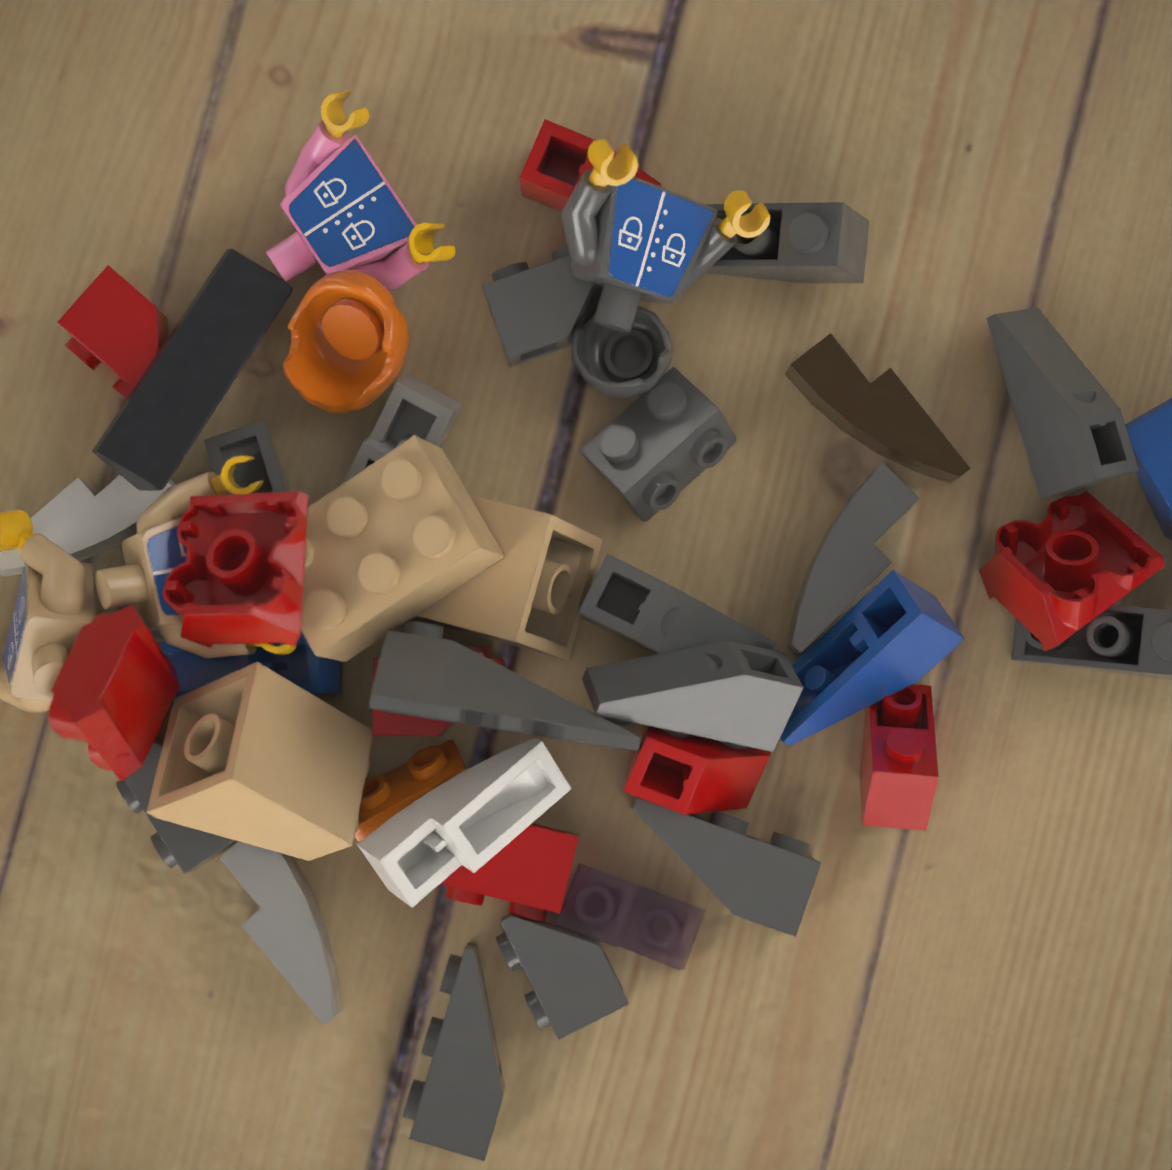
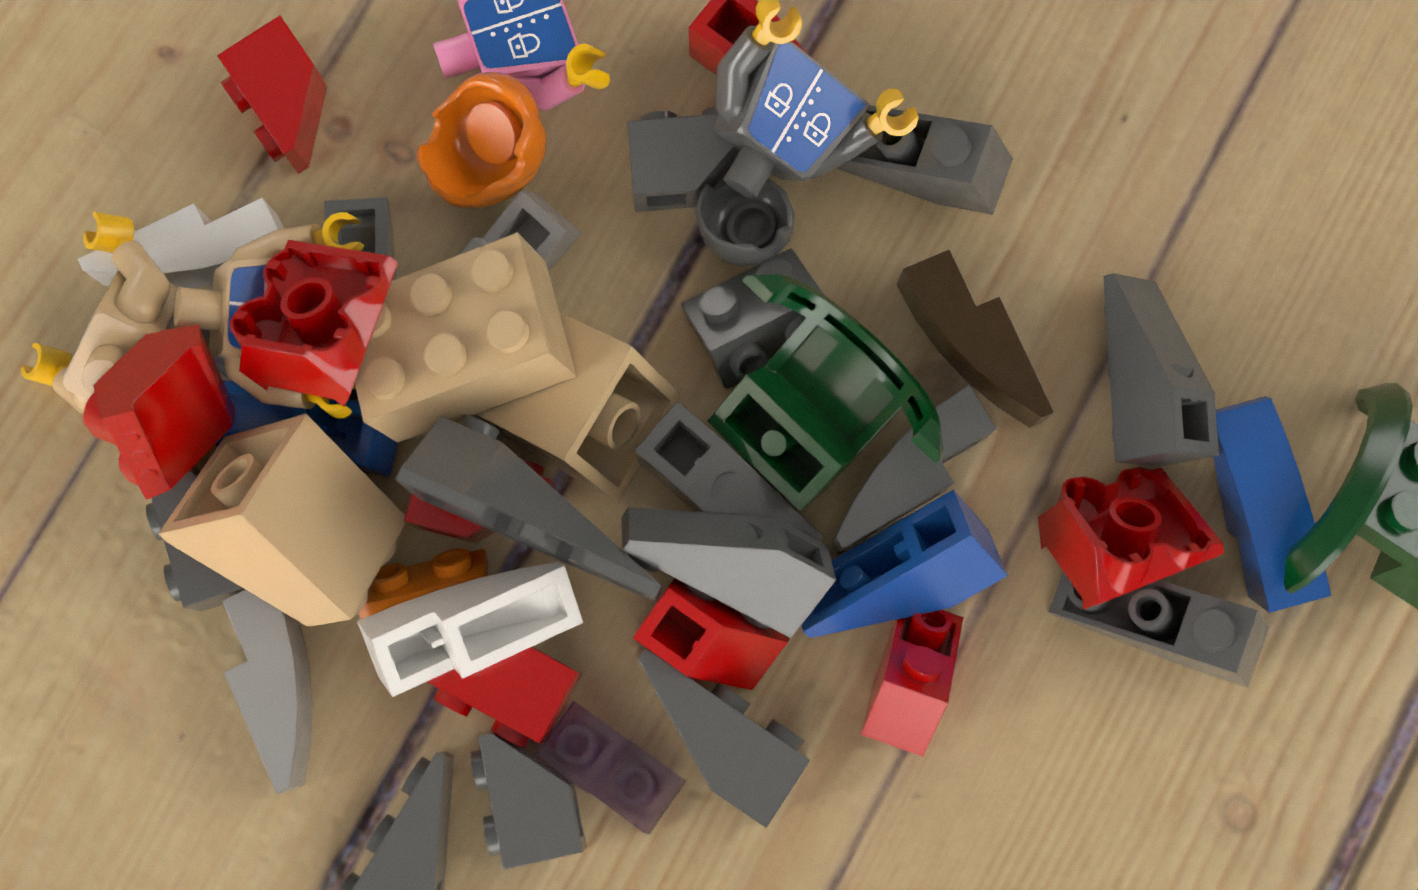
camera: 15 degrees right, 5 degrees down
(192, 372) = (328, 132): black slope -> none
(743, 512) = (820, 397): none -> dark green piece

